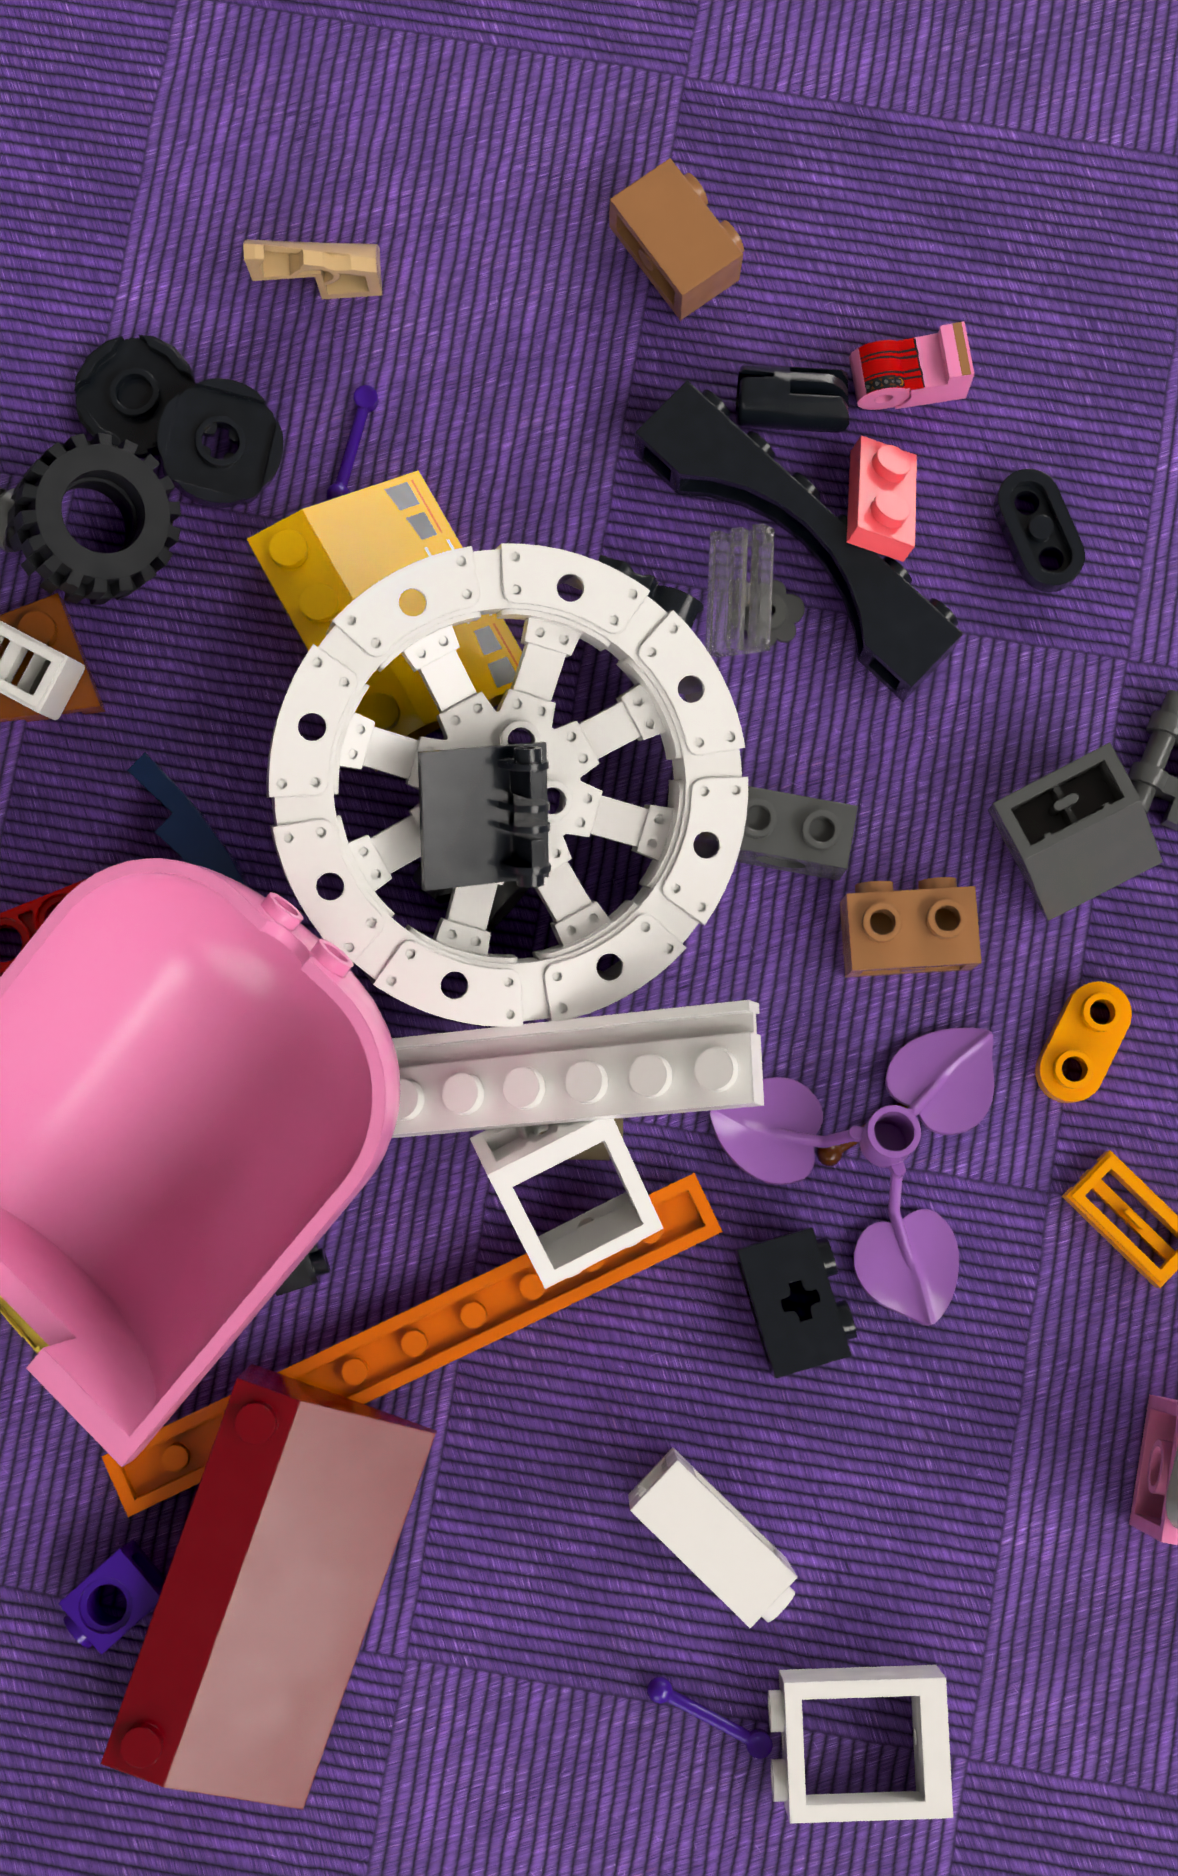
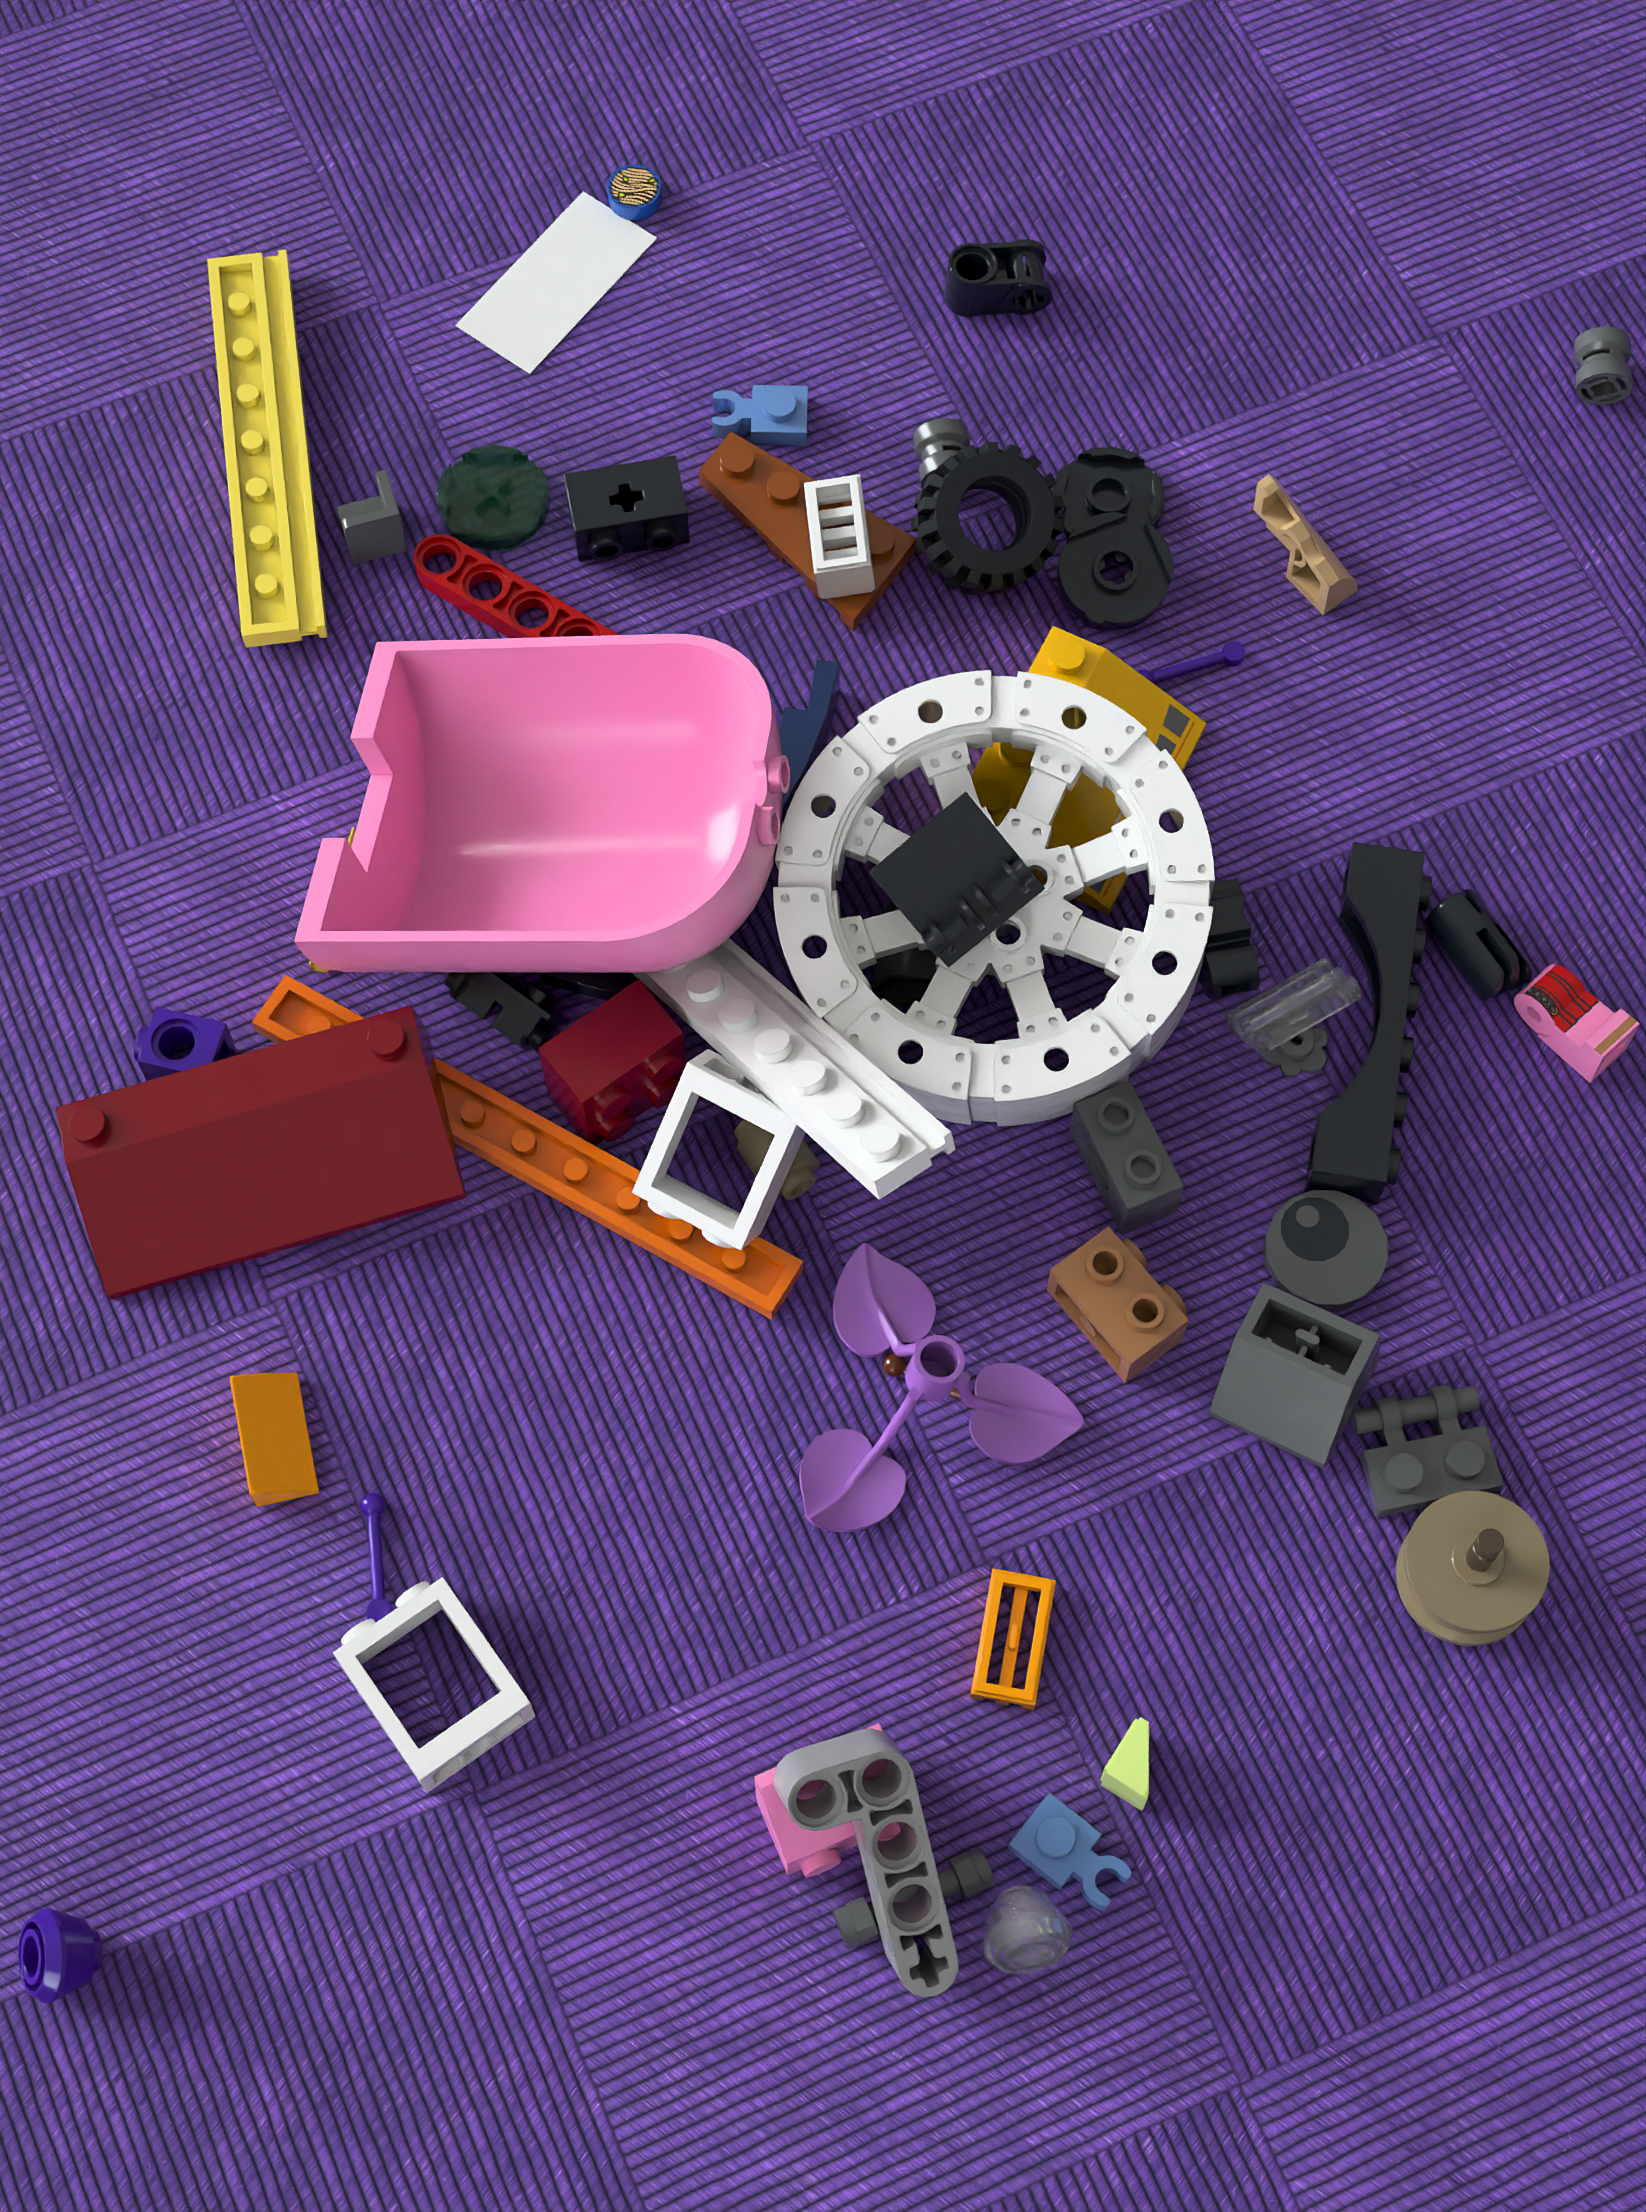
camera: 55 degrees right, 15 degrees down
(406, 1222) = (614, 1064): none -> dark red brick
(540, 1741) = (274, 1437): none -> light orange slope
(677, 238) = (1532, 780): medium nougat brick -> none
(713, 1539) = (521, 1446): white window -> none
(787, 1340) = (760, 1370): black brick -> none
(882, 498) = (1448, 1057): coral plate -> none
(971, 723) = (1326, 1249): none -> dark grey tile
(1042, 532) = (1520, 1202): black plate -> none
(1083, 1039) = (1133, 1509): light orange plate -> none

